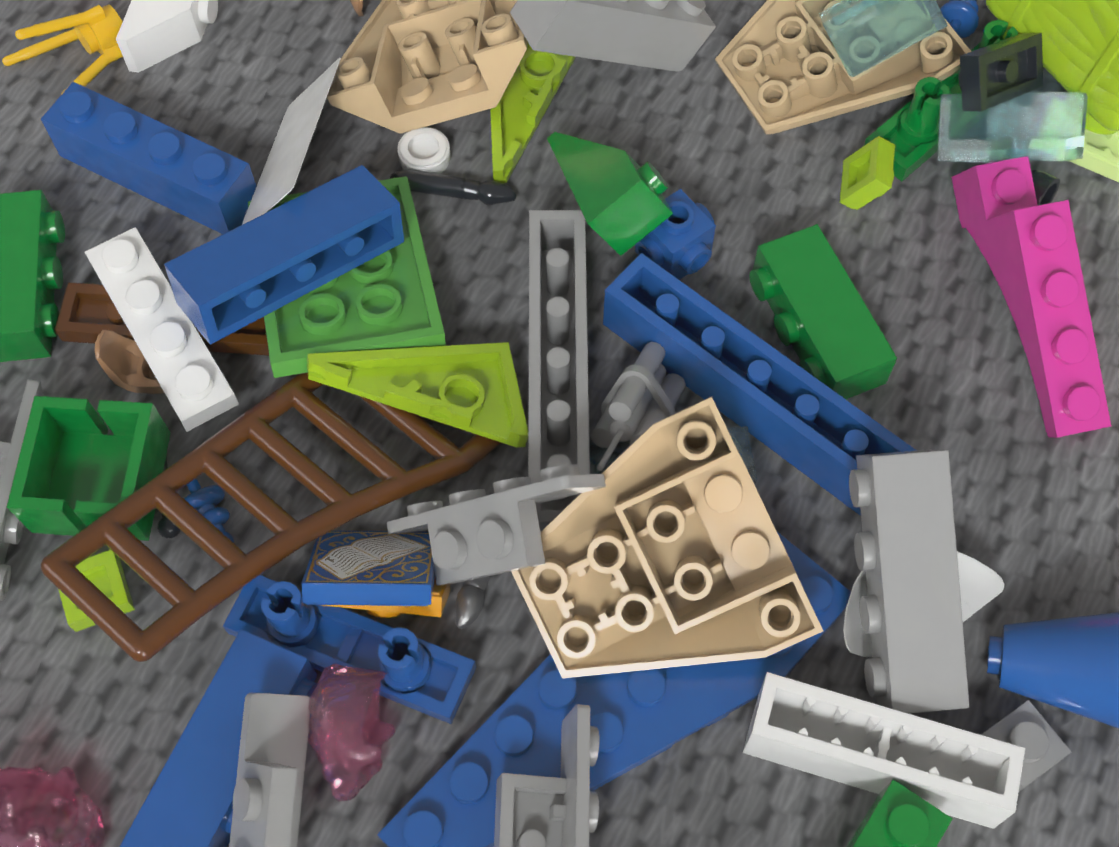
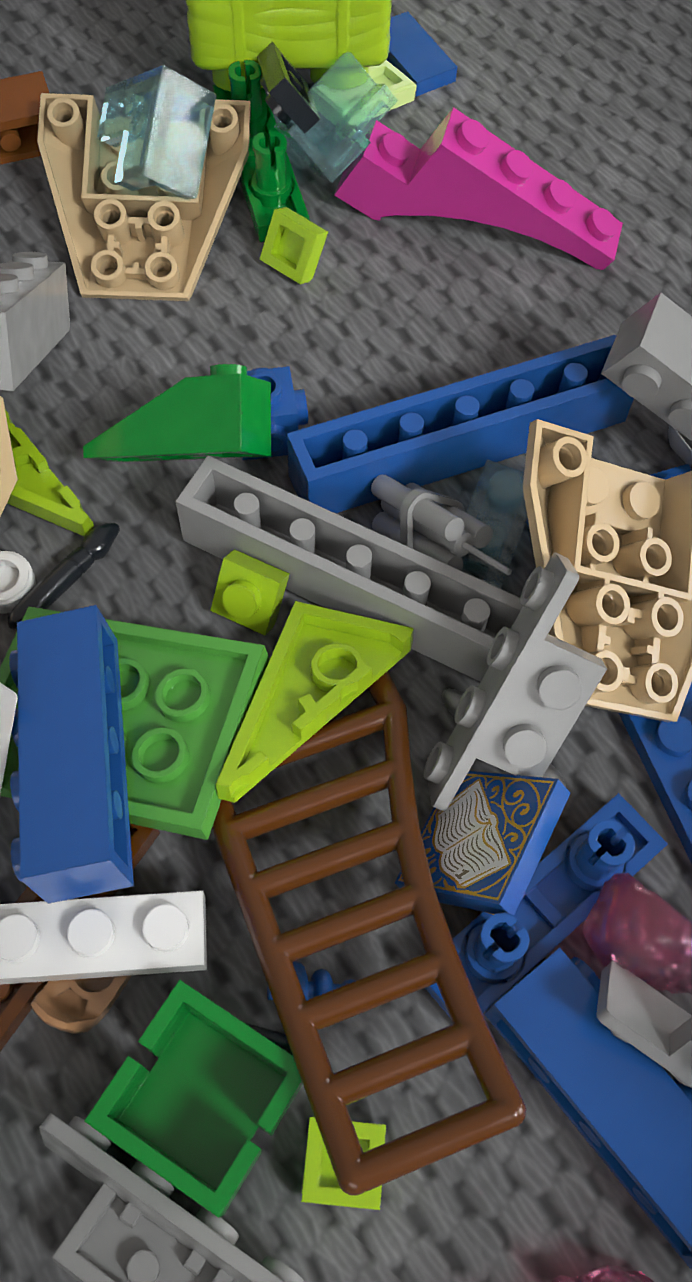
camera: 65 degrees left, 0 degrees up
(503, 309) = (249, 591): none -> lime plate
(821, 313) = (408, 345): green brick -> none

